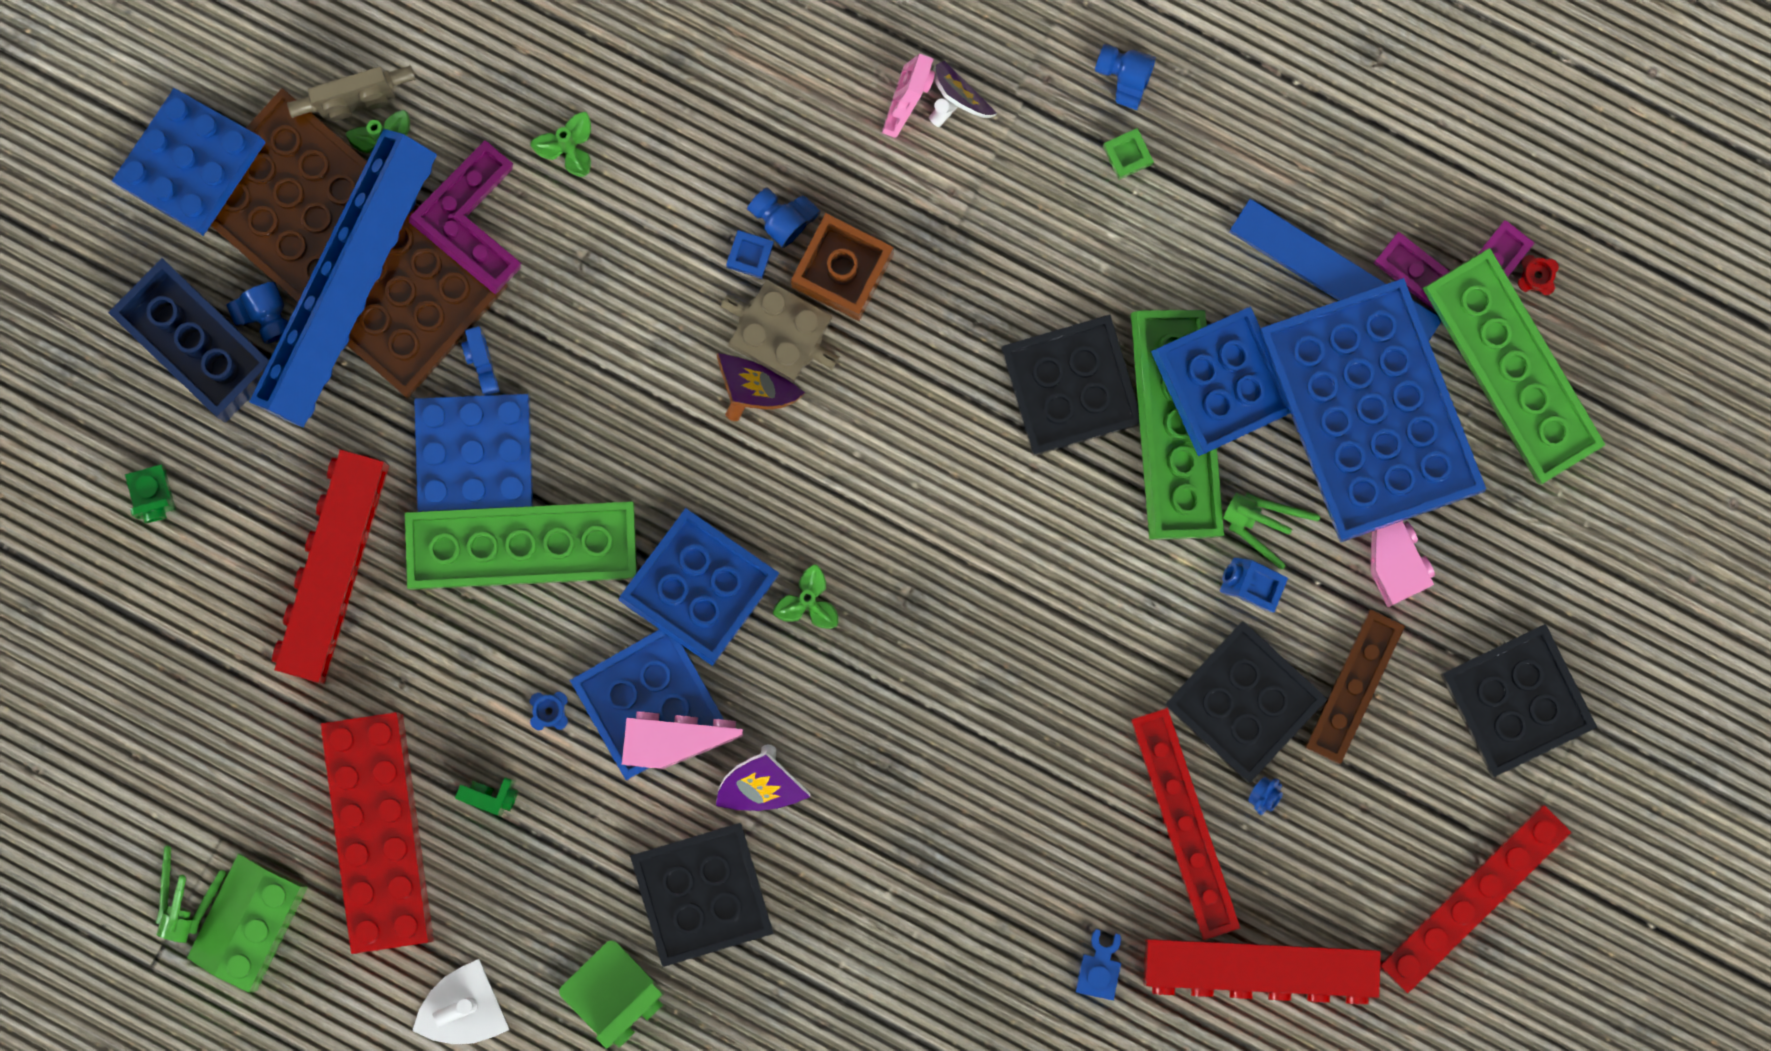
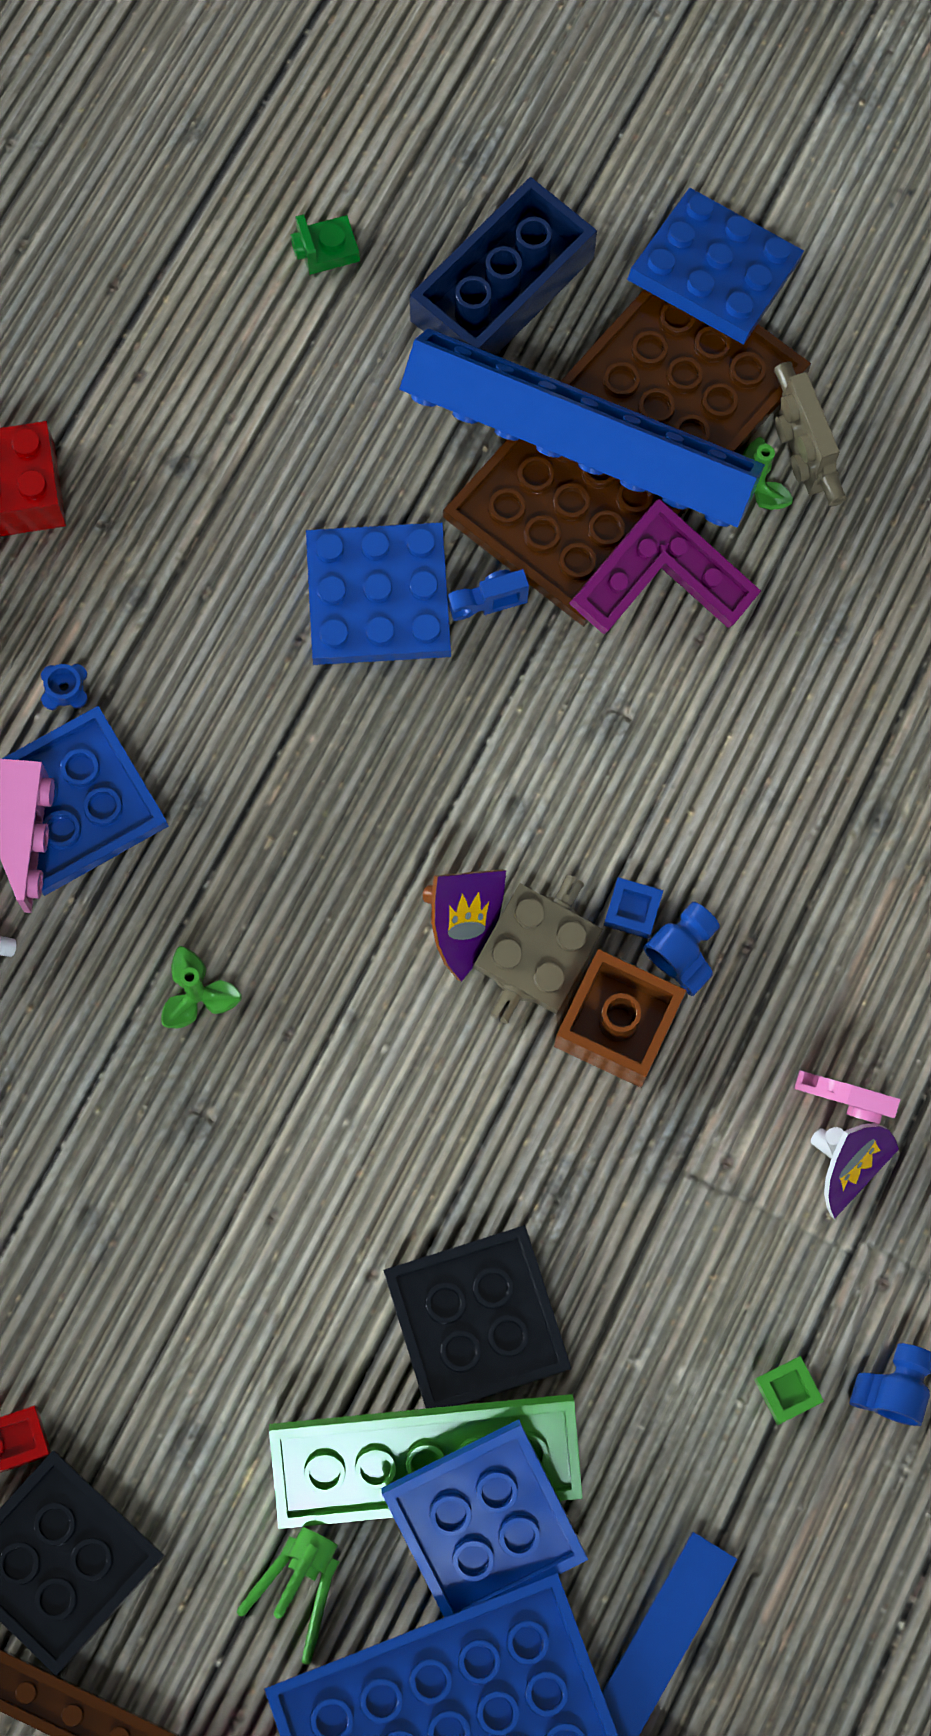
camera: 85 degrees right, 10 degrees down
(260, 305) = (549, 349): blue piece -> none
(330, 567) = (238, 435): red brick -> none
(520, 545) = (264, 650): bright green plate -> none
(575, 132) = (760, 673): bright green plant -> none
(698, 586) = (211, 853): blue plate -> none
(1253, 583) = (213, 1570): blue bracket -> none

